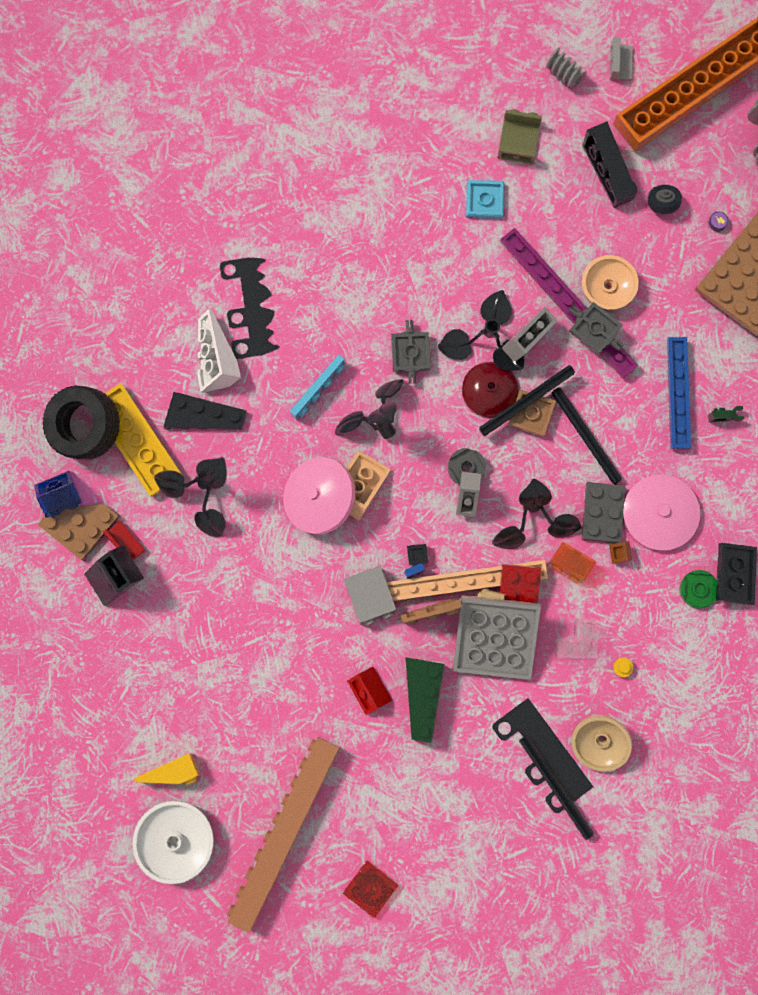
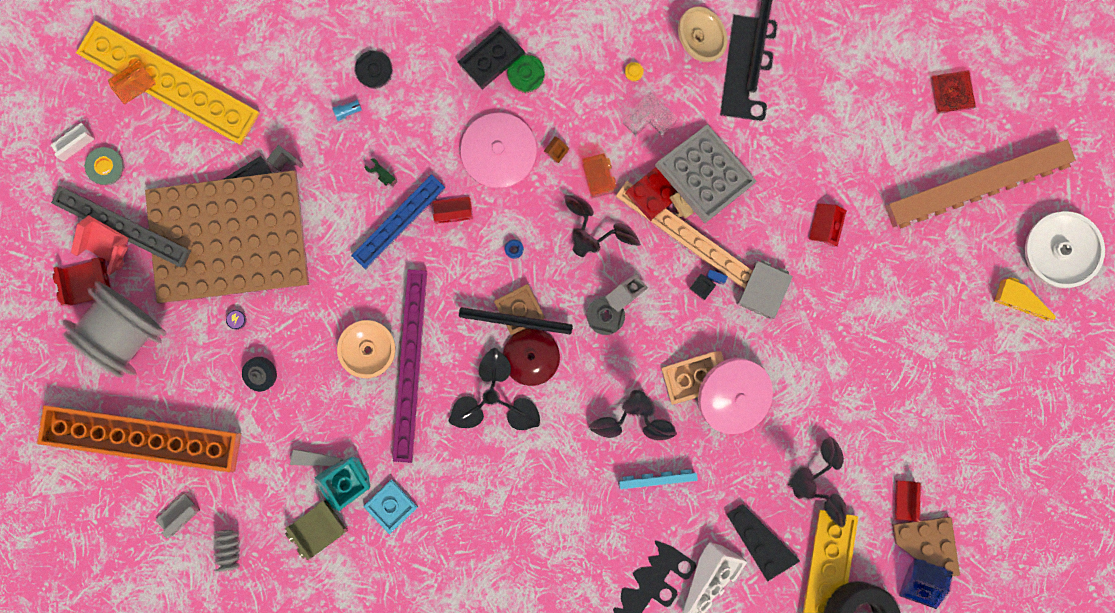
camera: 140 degrees left, 5 degrees up
(113, 574) = (939, 479): black slope -> none
(410, 352) = (562, 441): dark grey plate -> none
(423, 687) = (789, 189): dark green wedge -> none
(430, 612) = (731, 233): medium nougat plate -> none
(529, 334) = (465, 366): light grey brick -> none
(533, 182) = (343, 482): none -> teal slope
(572, 178) = (314, 459): none -> light grey piece
(578, 446) = (518, 244): none -> blue plate
(586, 435) = (495, 255): black axle -> none
(595, 328) = (412, 325): dark grey plate -> none
(603, 512) = (539, 190): dark grey plate -> none
(609, 164) = (273, 439): black wedge -> none
(649, 438) = (452, 210): none -> red panel

